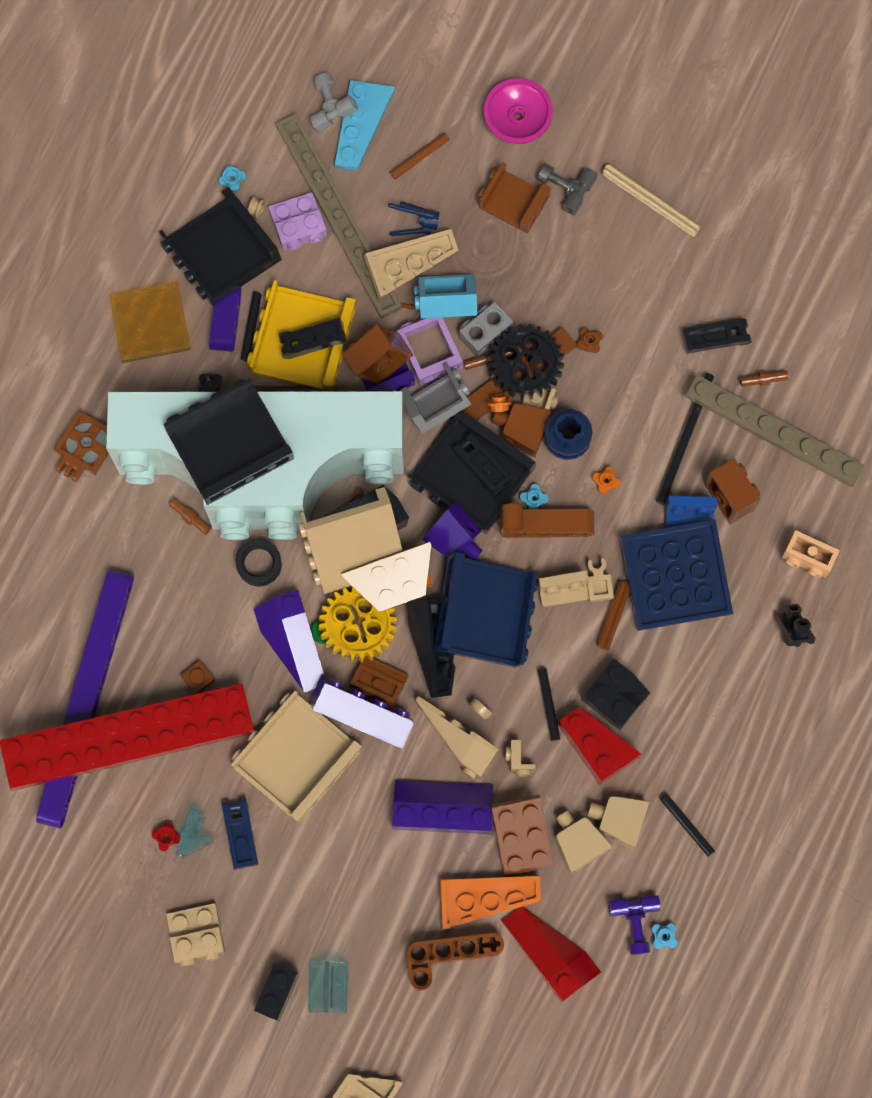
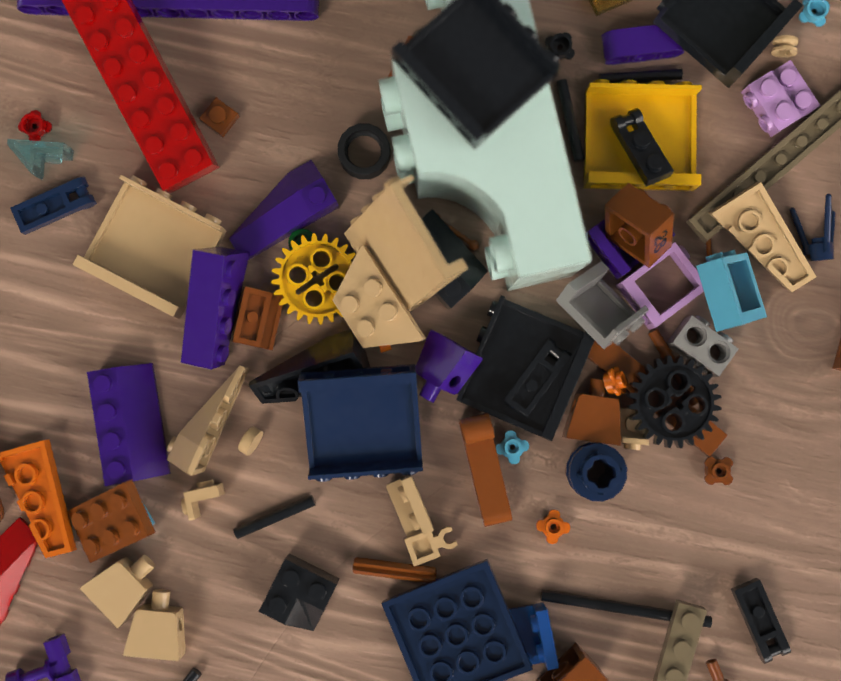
camera: 70 degrees right, 10 degrees up
(596, 745) = (232, 588): red wedge -> none

